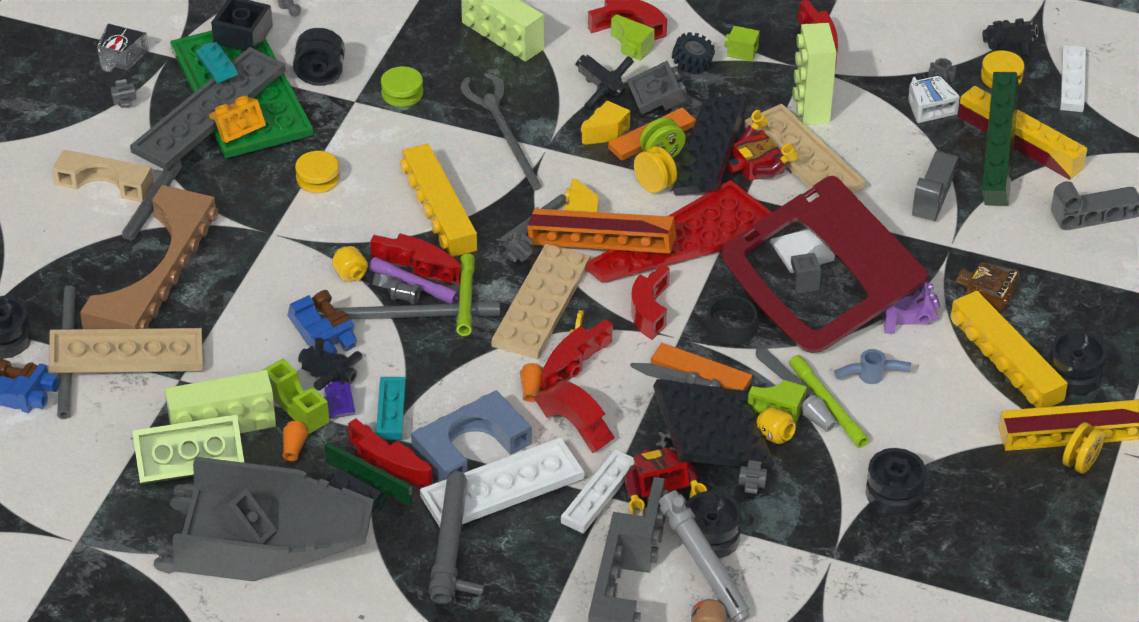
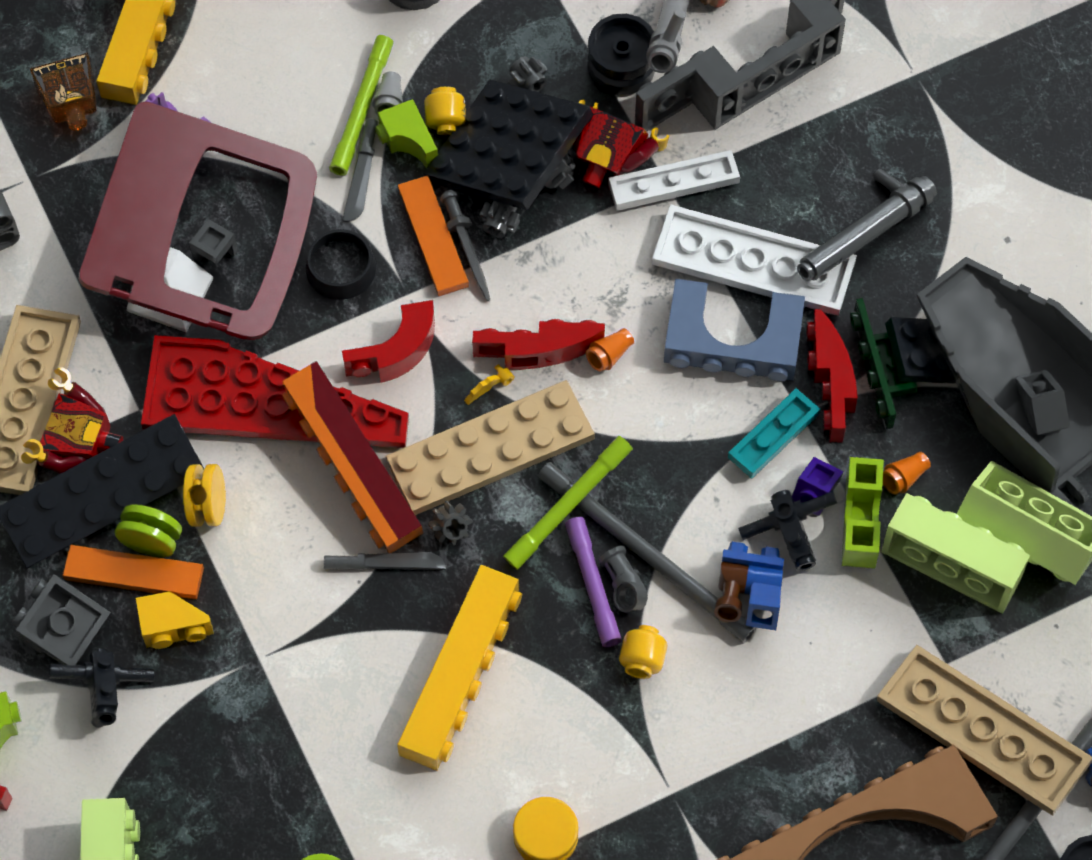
camera: 135 degrees left, 20 degrees up
(413, 252) = (559, 599): red slope -> none
(491, 103) = (252, 769): dark grey piece -> none
(579, 408) = (614, 273): red arch -> none
(581, 198) = (326, 523): yellow slope -> none
(872, 367) = (286, 89): sand blue piece -> none

